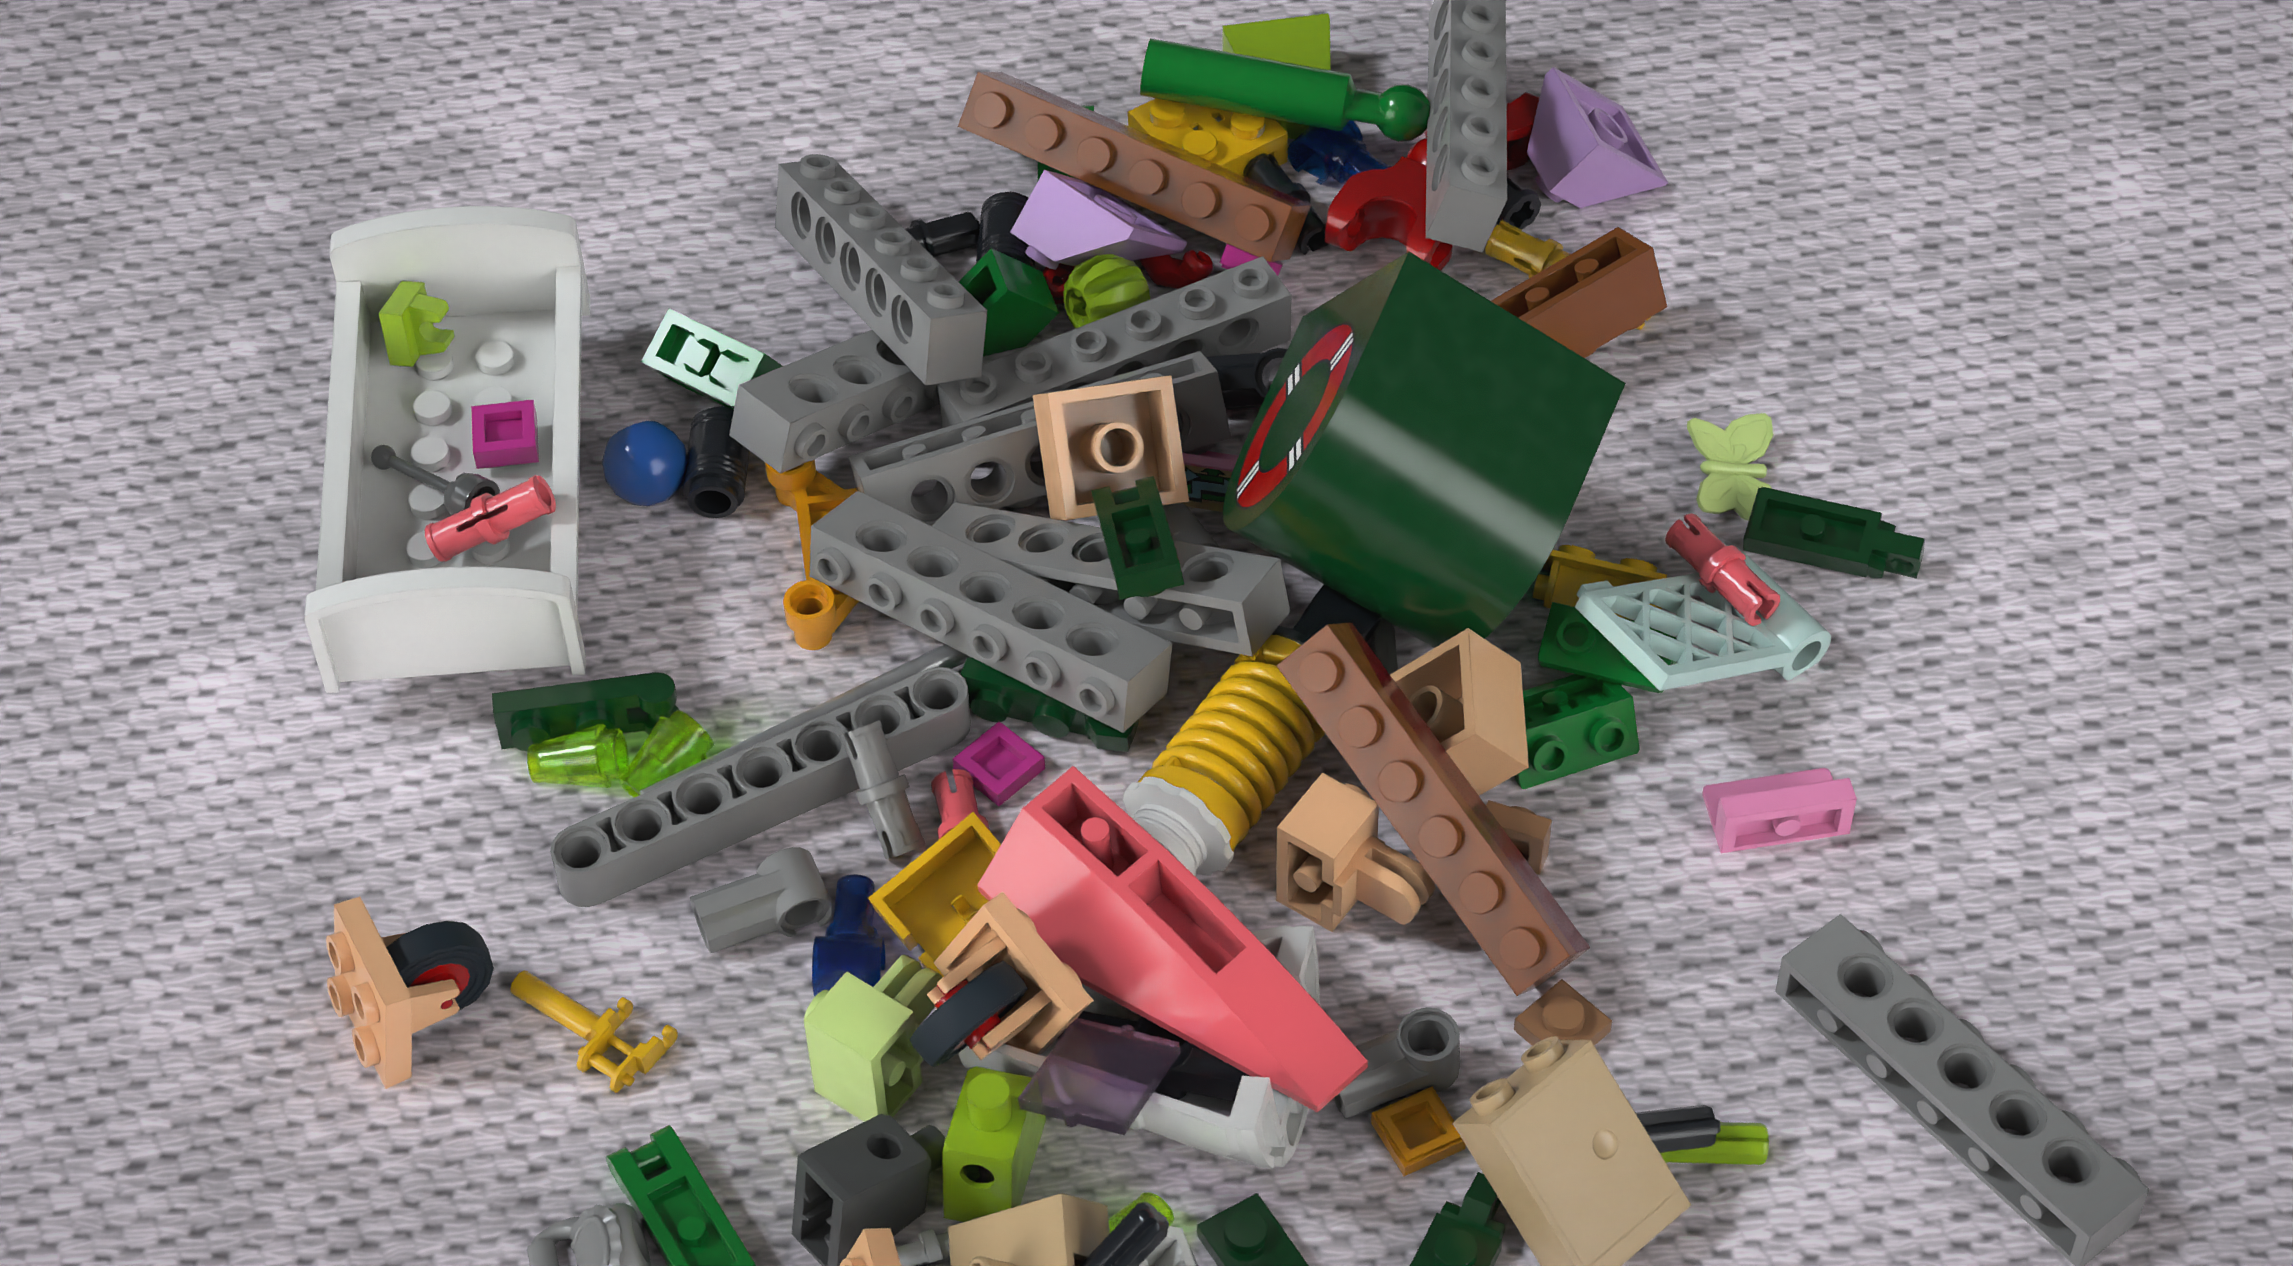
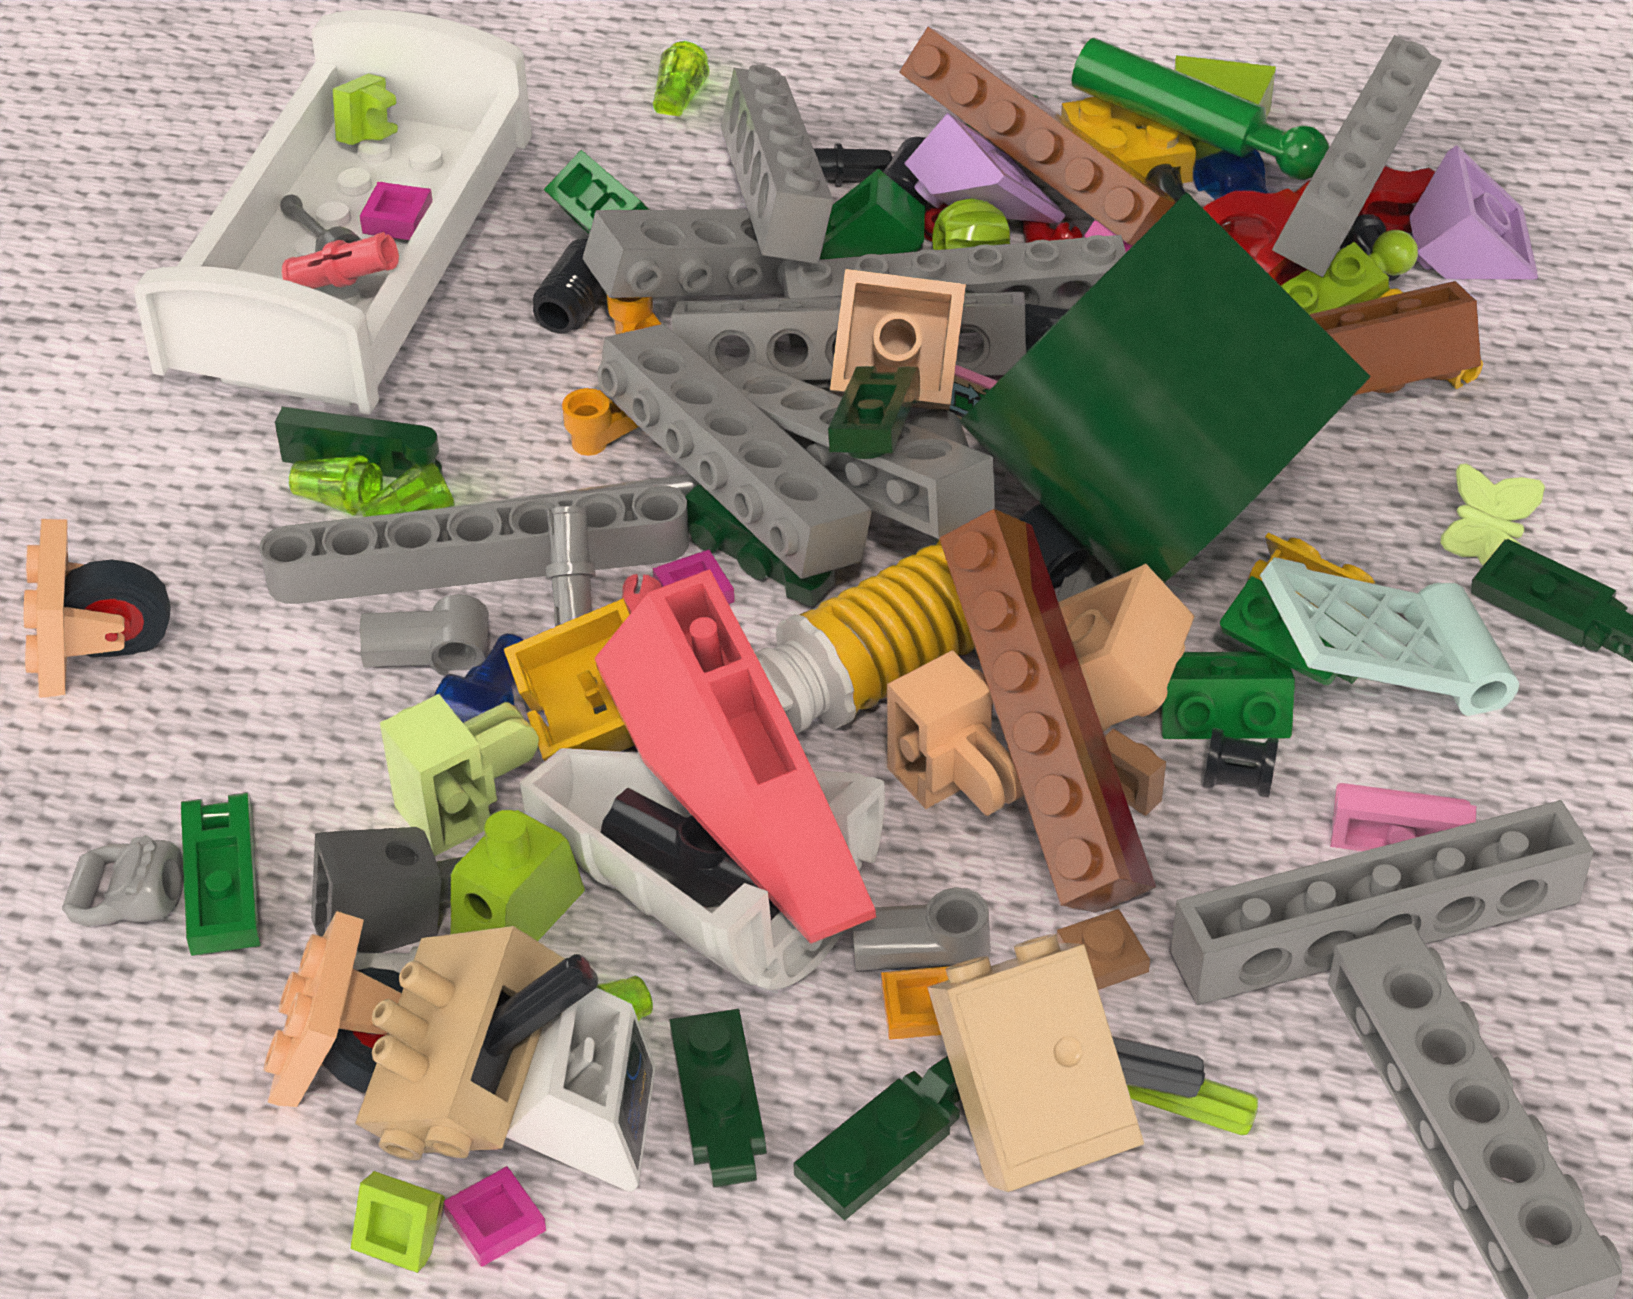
camera: 20 degrees right, 5 degrees down
(595, 1029) = (235, 703): yellow piece -> none
(645, 463) = (510, 269): blue piece -> none
(706, 179) = (680, 76): none -> clear neon green cone
(999, 989) = (557, 748): light nougat plate -> none
(1099, 1076) = (618, 847): piece -> none
(1510, 243) = (1354, 274): none -> lime plate
(1610, 794) = (1242, 775): none -> black bush
(1722, 569) = (1430, 591): coral pin -> none
(1831, 872) = (1438, 882): none -> light grey brick

